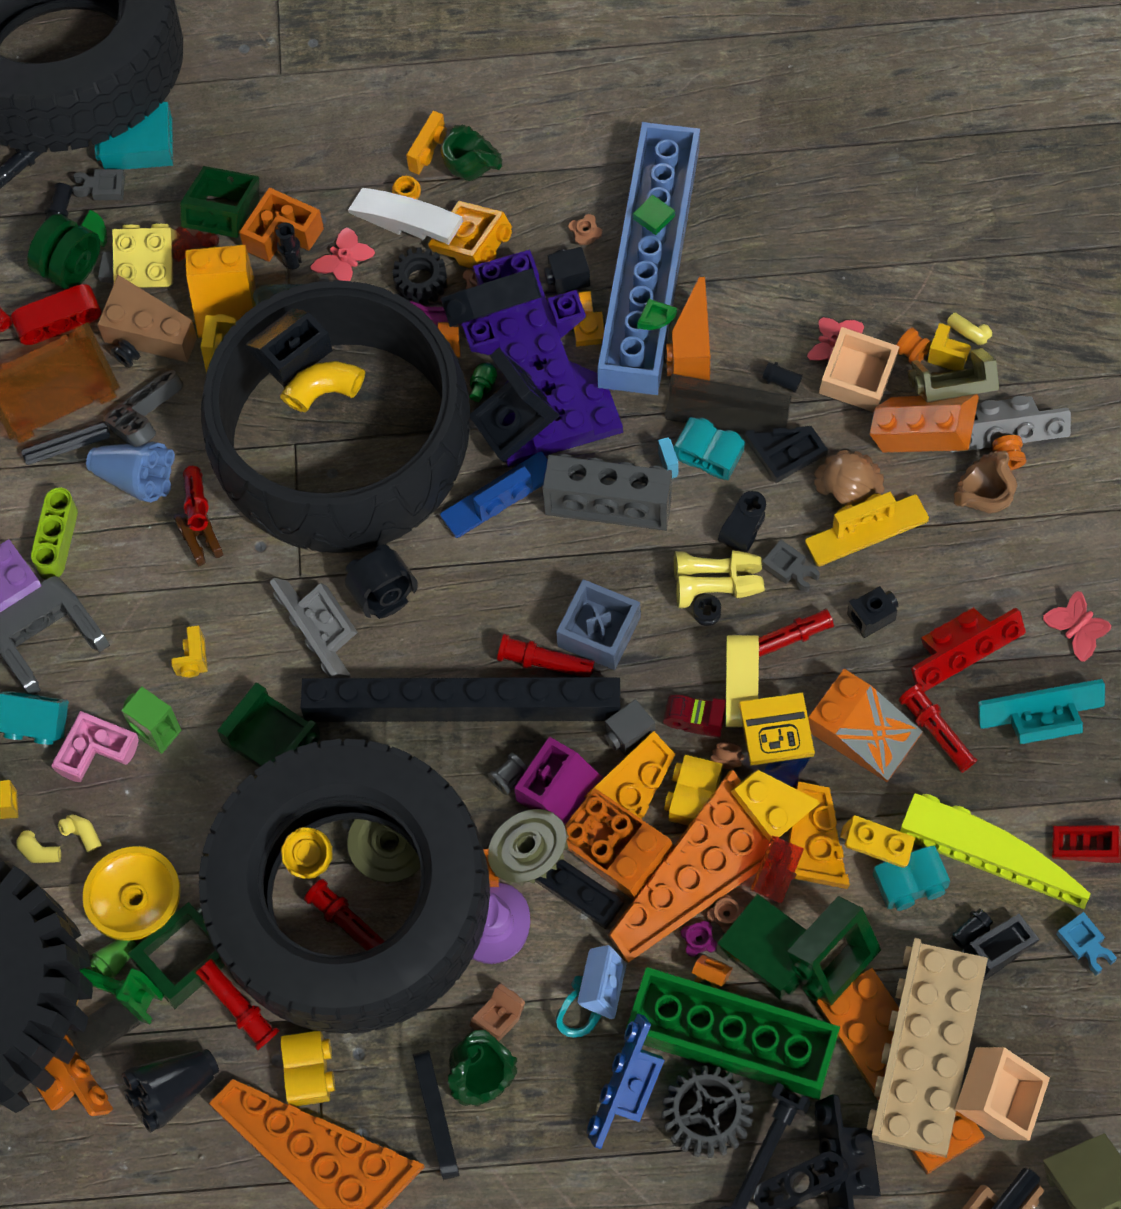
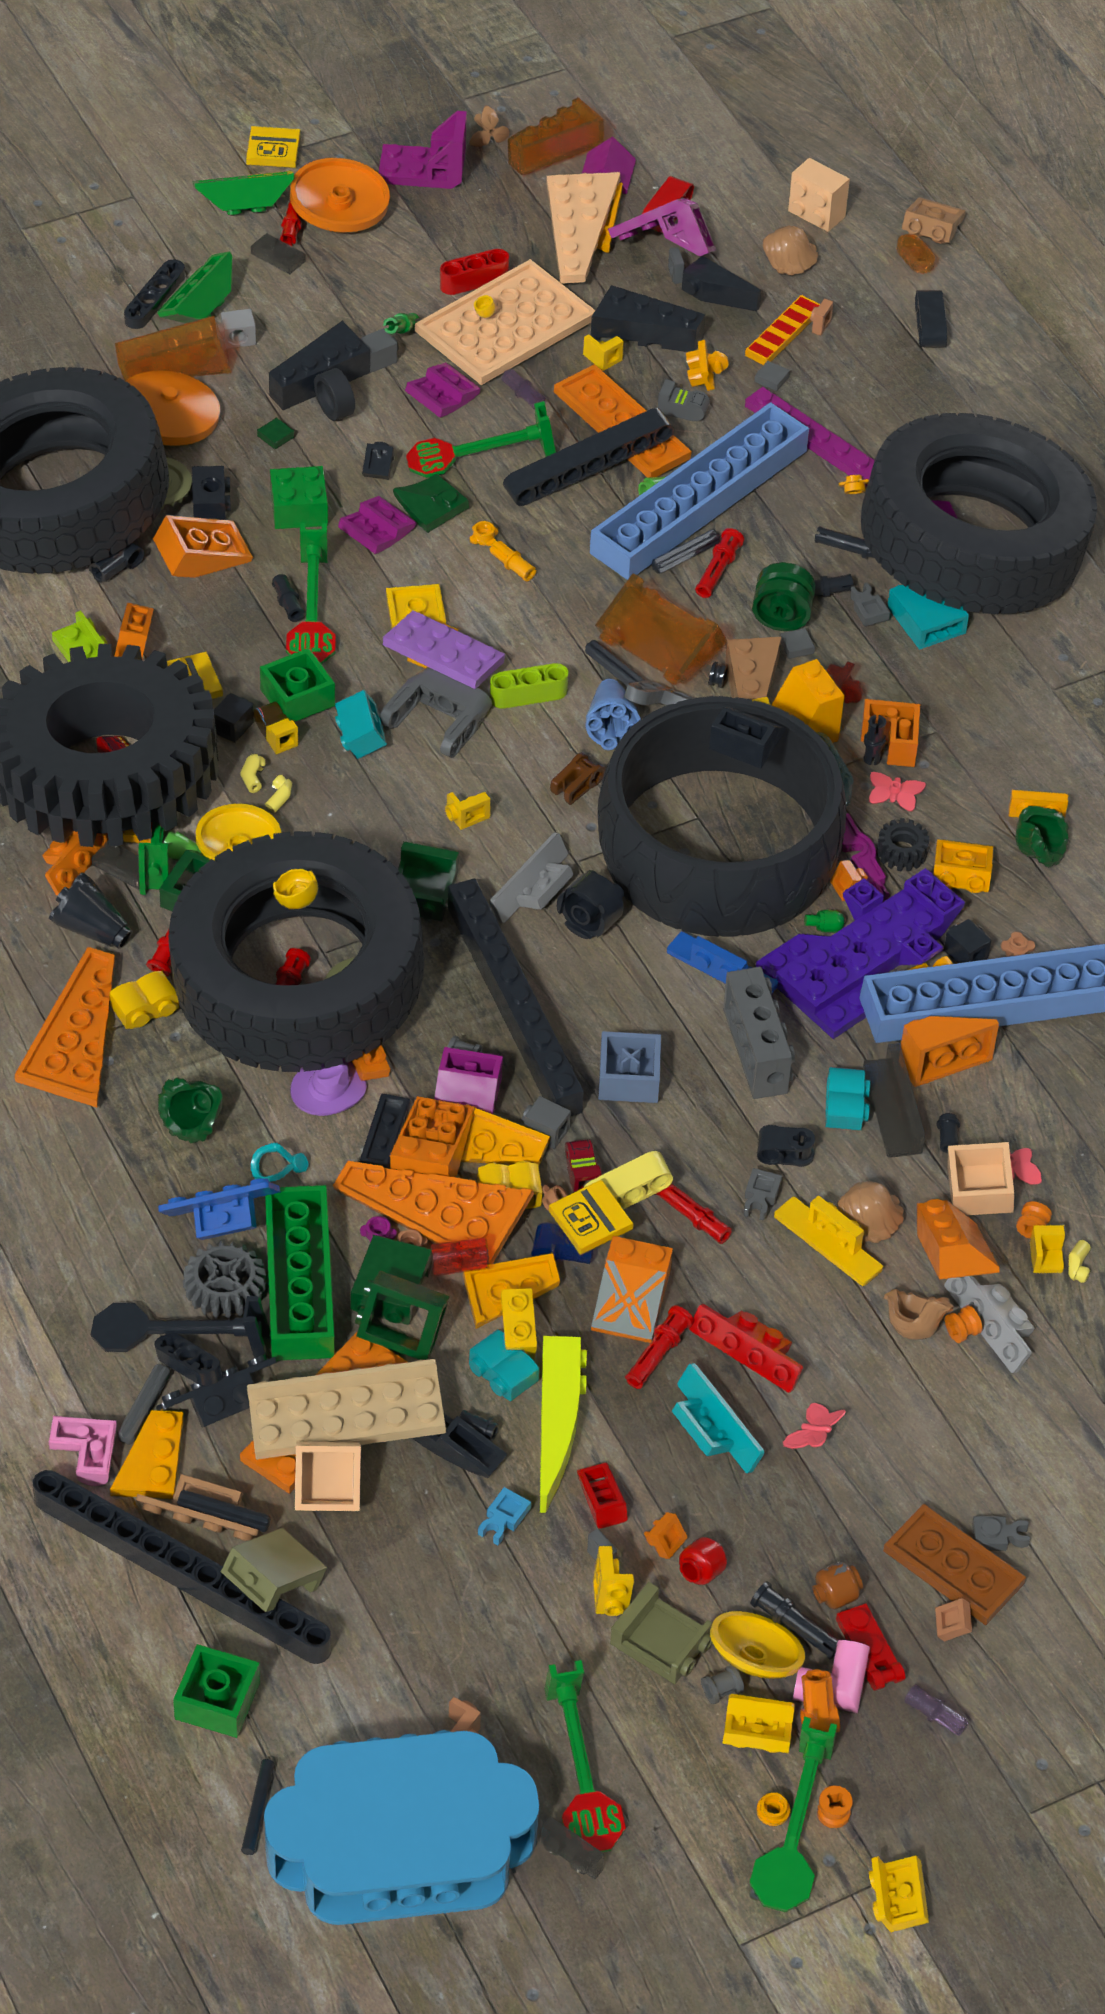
camera: 60 degrees right, 15 degrees down
(55, 314) = (731, 616): red beam -> none
(93, 736) = (359, 769): bright pink brick -> none
(96, 224) = (825, 616): green tile -> none
(144, 255) = (814, 643): light yellow bracket -> none
(151, 719) = (391, 796): bright green brick -> none
(195, 503) = (590, 757): red pin -> none
(218, 217) = (875, 663): dark green window -> none
(322, 379) = (726, 766): yellow cylinder -> none
(405, 214) = (956, 815): white slope -> none
(407, 183) = (984, 809): light orange plate -> none
(436, 1115) = (137, 1099): black beam -> none
(491, 297) = (894, 882): black slope -> none
(499, 1013) = (244, 1111): nougat bracket -> none
(518, 397) = (803, 932): black bracket -> none
(527, 846) = (397, 1078): olive gear -> none
(529, 654) = (581, 1034): red pin -> none
(602, 981) = (305, 1170): light blue slope -> none
(654, 214) = (1043, 970): green tile -> none
(656, 315) = (939, 1000): green tile -> none
(668, 456) = (817, 1071): medium azure tile -> none
(700, 602) = (688, 1155): black bush -> none
(712, 971) = (349, 1246): orange tile -> none
(739, 564) = (722, 1157): light yellow piece -> none
(772, 803) = (517, 1232): yellow wing -> none
(786, 449) = (875, 1156): black wing -> none
(869, 619) = (747, 1265): black brick -> none
(958, 383) = (1026, 1270): olive panel -> none

